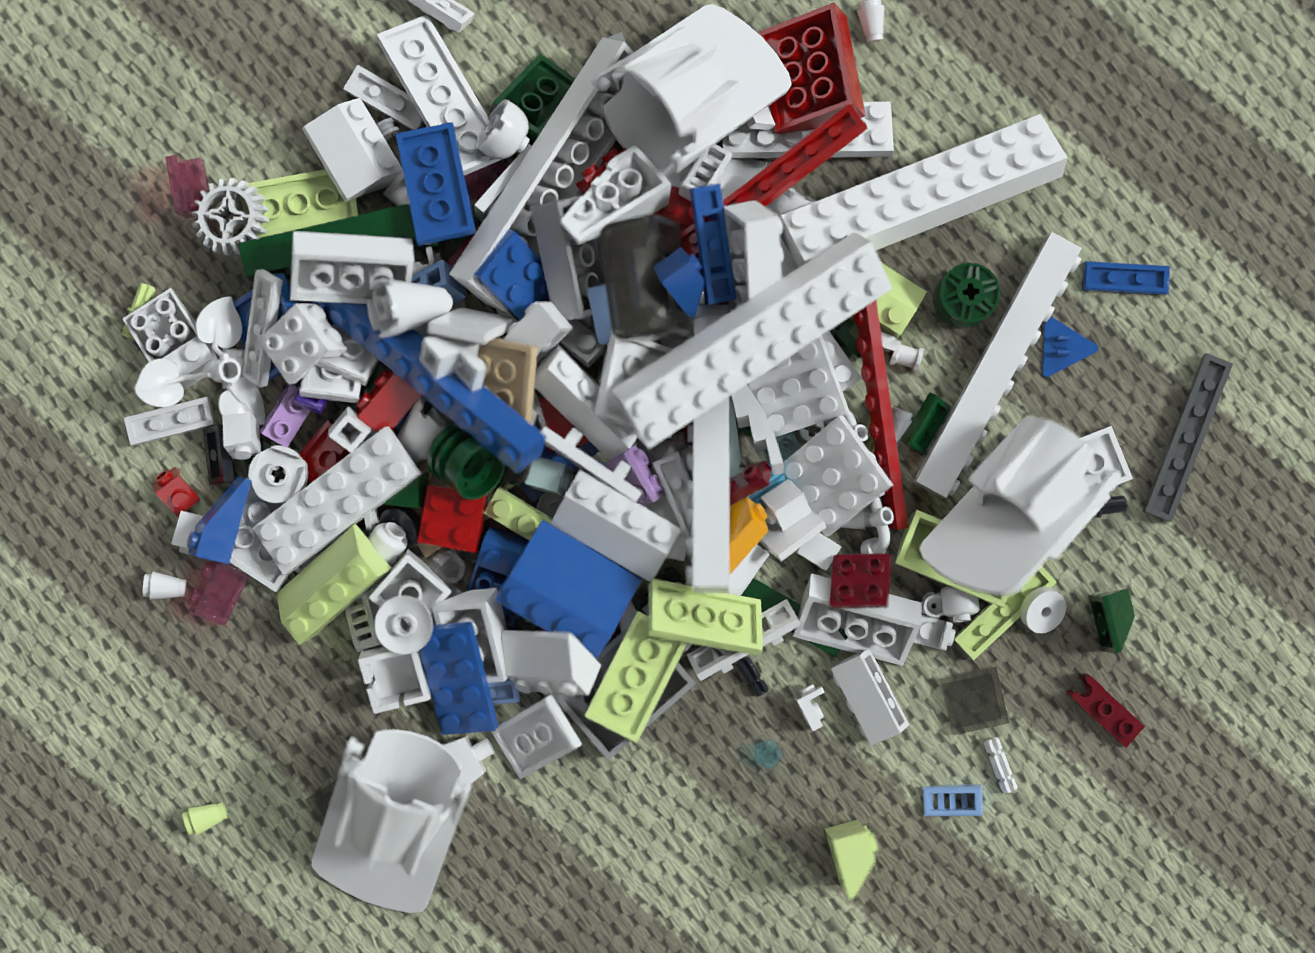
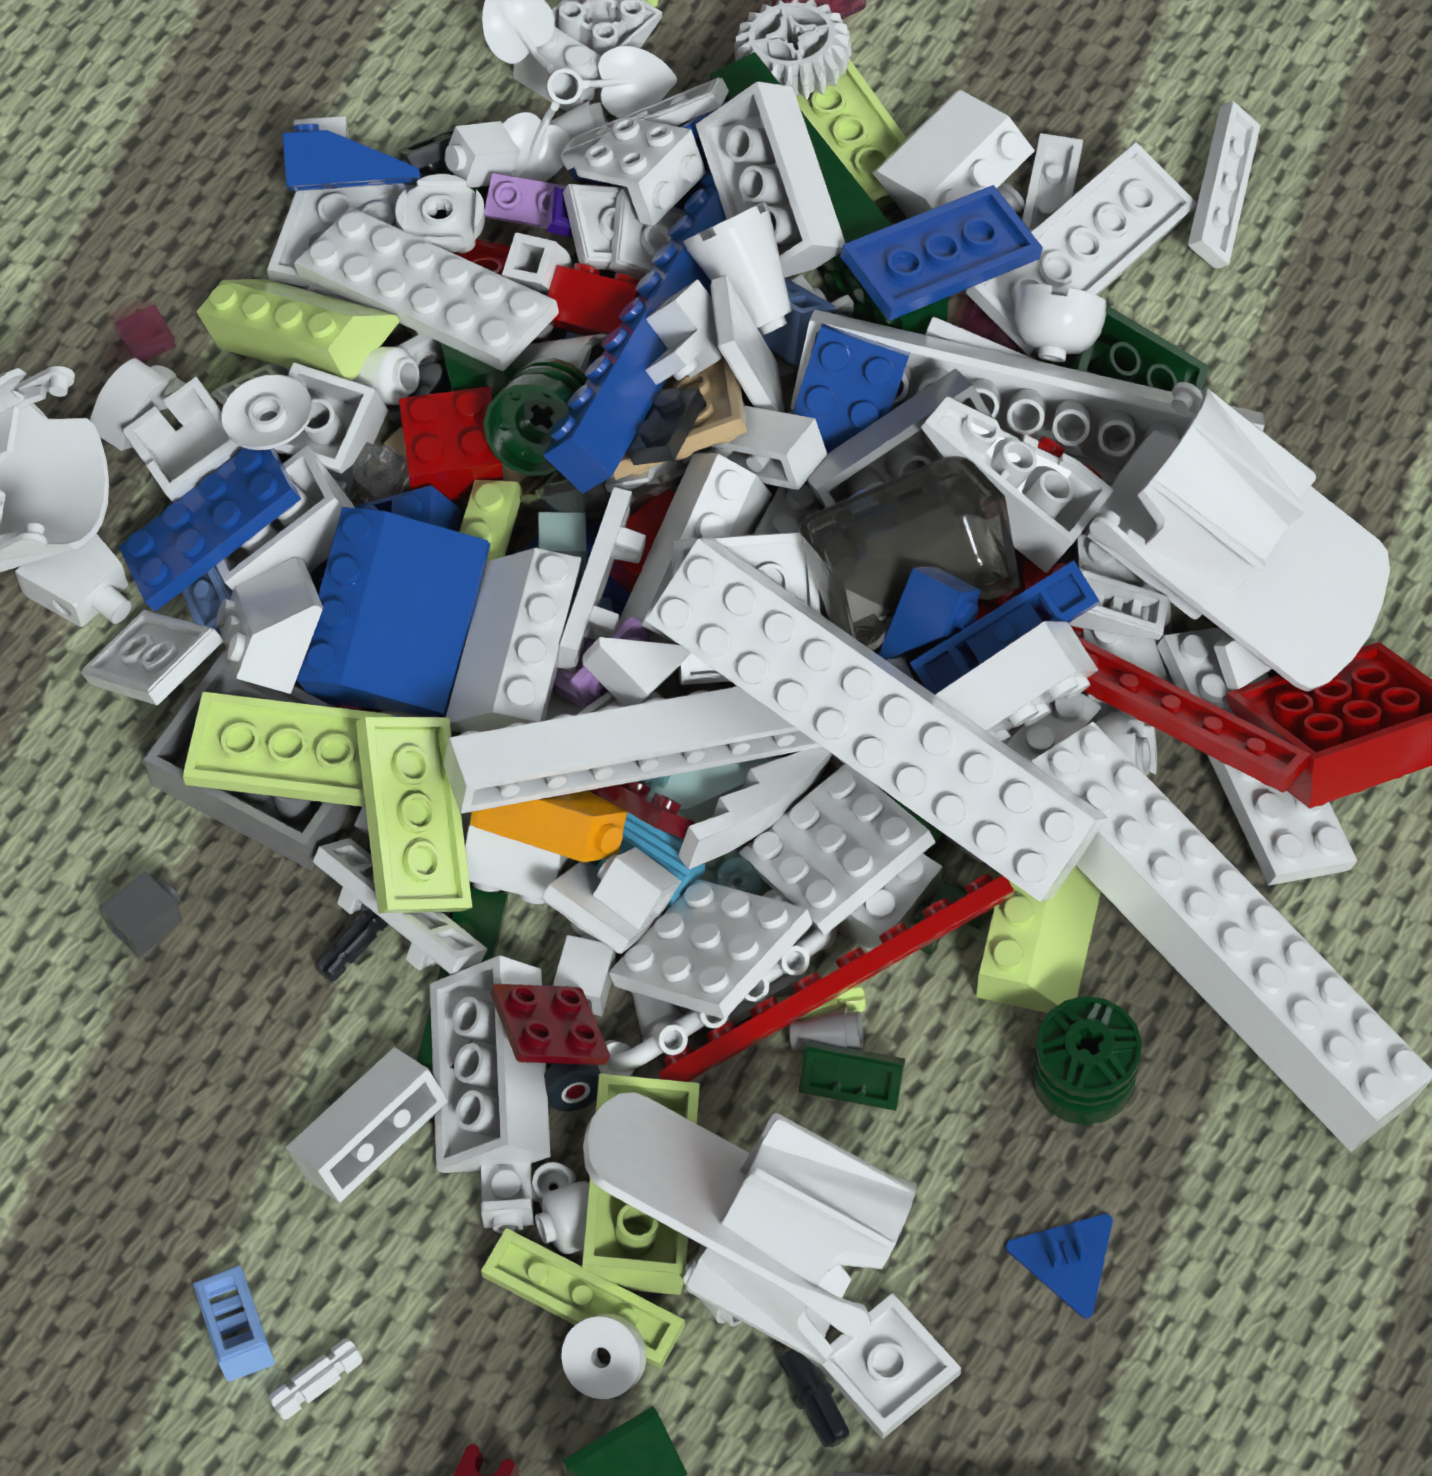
camera: 75 degrees right, 25 degrees down
(163, 586) = (229, 136): white cone -> none
(169, 421) = (470, 74): white plate -> none
(175, 491) = (373, 111): red bracket -> none
(217, 591) = (242, 203): clear pink bracket -> none
(294, 679) = (145, 334): none -> clear pink plate
(346, 697) = (129, 395): none -> white brick
(515, 391) = (666, 426): none -> black plate
(665, 464) = (632, 667): none -> white slope
(694, 784) = (142, 913): none -> dark grey brick
(762, 748) = (224, 998): clear light blue plate -> none
(810, 712) = (315, 1044): white bracket -> none
(852, 854) = (88, 1154): yellowish green slope -> none
(902, 354) = (953, 997): white connector -> none
(974, 700) = (413, 1302): clear smoke tile -> none
(997, 365) = (1012, 1155): white brick -> none
(1125, 278) = (1227, 1322): blue tile -> none

